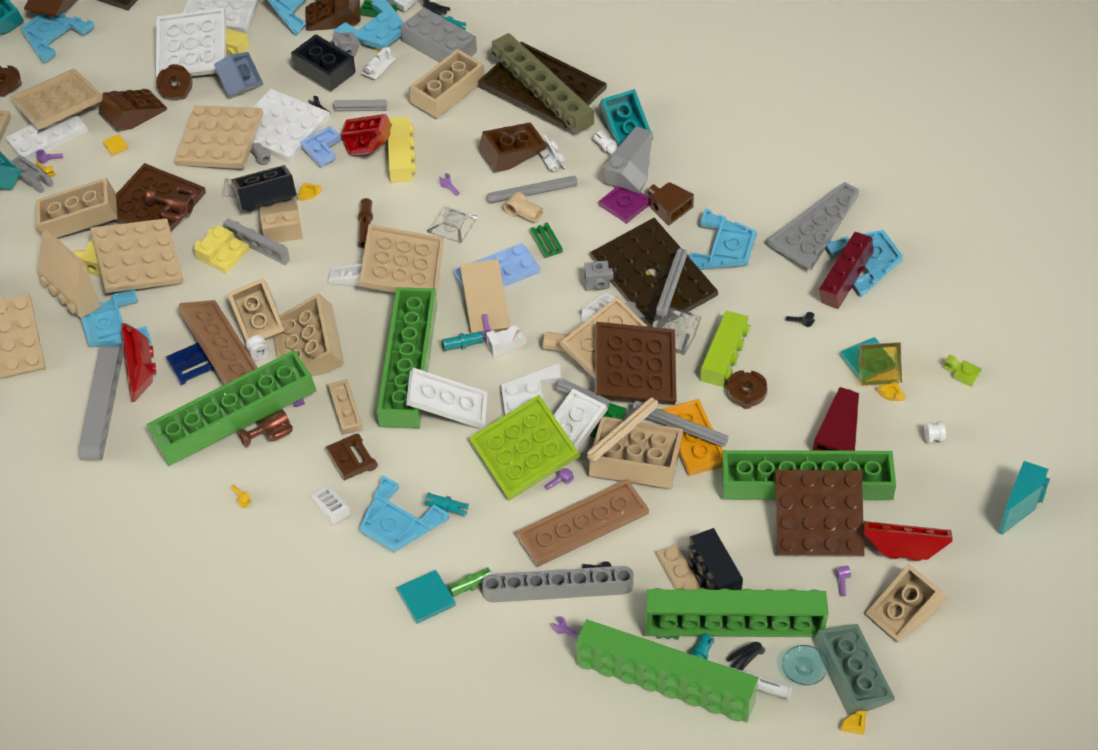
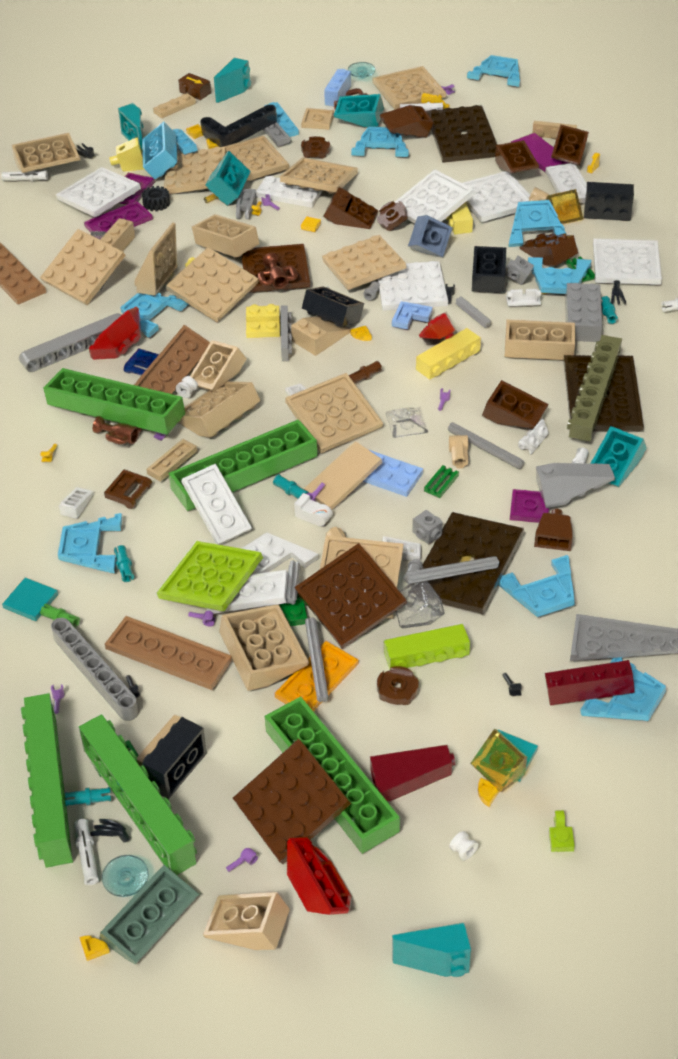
camera: 55 degrees right, 5 degrees down
(622, 429) = (267, 620): tan axle -> none

